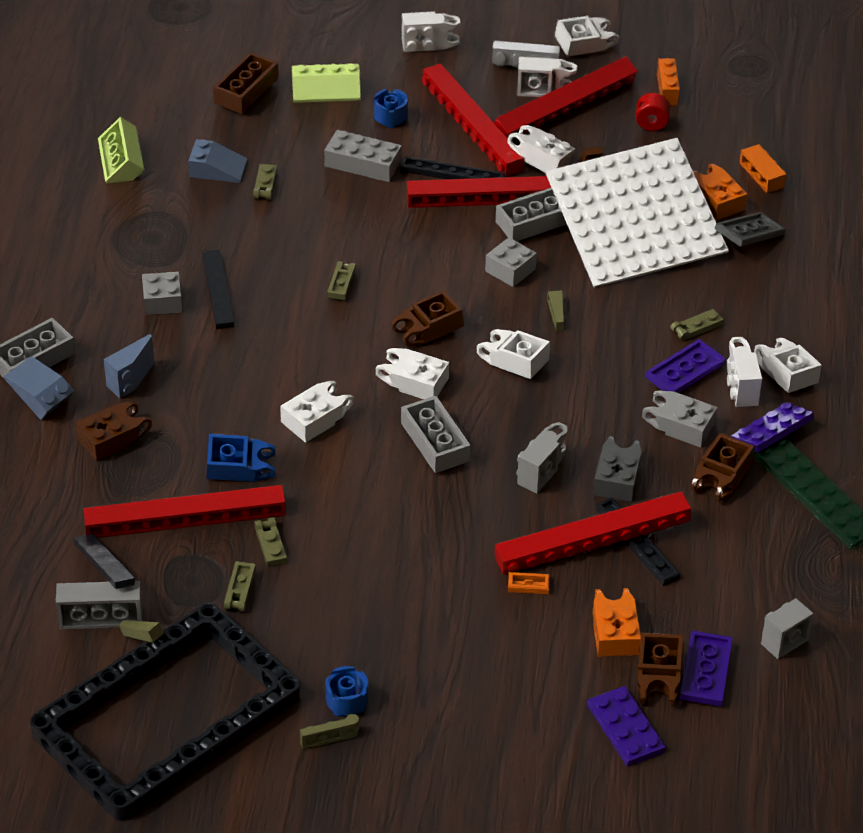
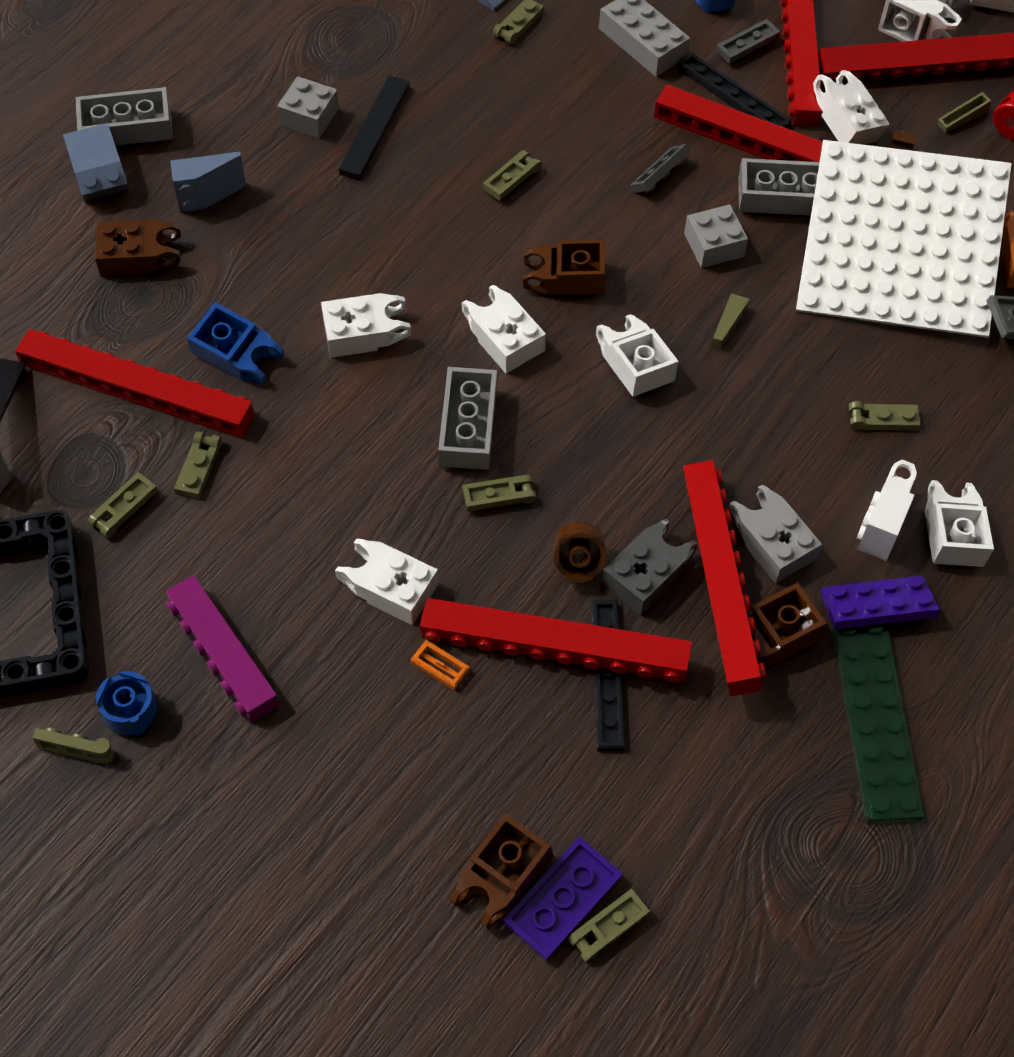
camera: 30 degrees right, 15 degrees up
(381, 635) = (222, 648): none -> magenta brick
(437, 134) = (747, 41): none -> dark grey plate
(440, 236) = (660, 169): none -> dark grey plate
(459, 548) = (390, 580): none -> white brick
(488, 470) = (499, 493): none -> olive plate
(541, 458) = (564, 505): light grey brick -> none
(571, 476) = (577, 537): none -> reddish brown brick
(614, 125) = (965, 113): none -> olive piece
(616, 625) = (494, 768): orange brick -> none
(626, 726) = (412, 925): dark purple plate -> none
(671, 450) = (723, 579): none -> red brick
(685, 367) = (827, 468): dark purple plate -> none
(744, 668) = (609, 925): none -> olive plate
(786, 628) = (694, 900): light grey brick -> none

